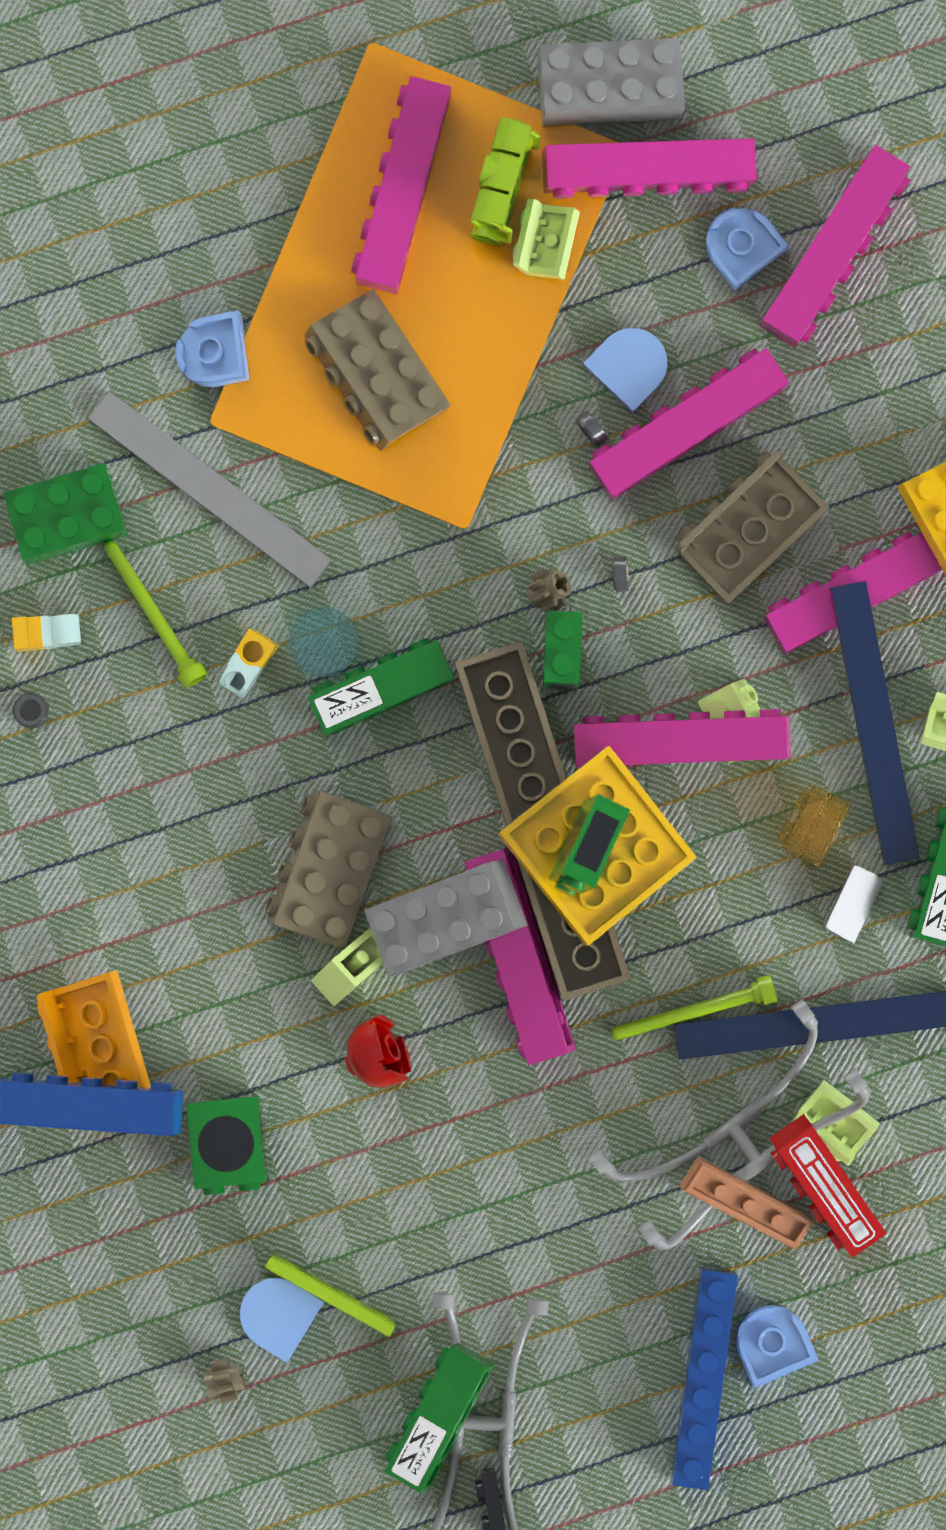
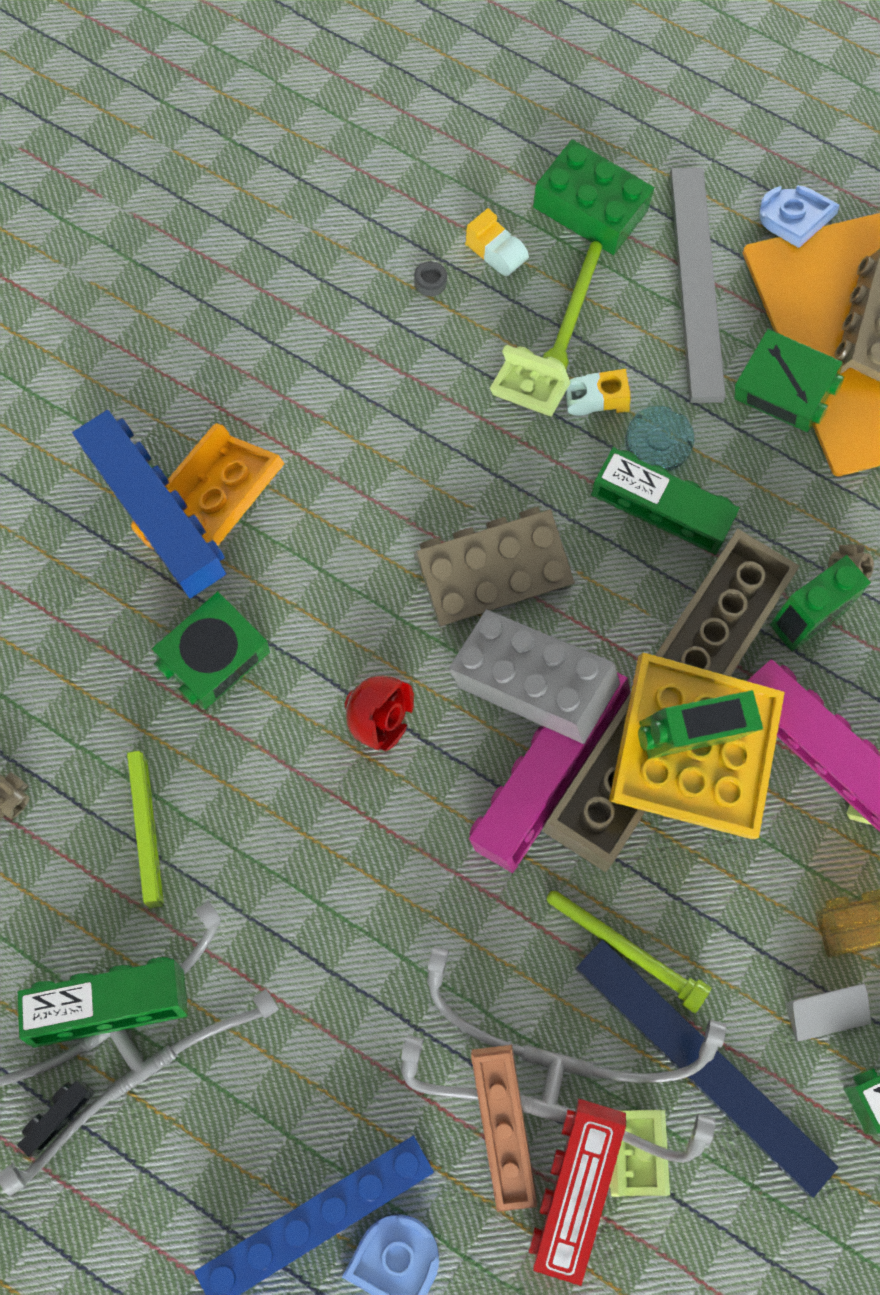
camera: 45 degrees right, 15 degrees down
(196, 713) = (531, 380): none -> yellowish green bracket
(278, 1315) = (94, 801): light blue tile -> none
(349, 968) = (427, 638): yellowish green slope -> none
(362, 501) = (789, 381): none -> green brick

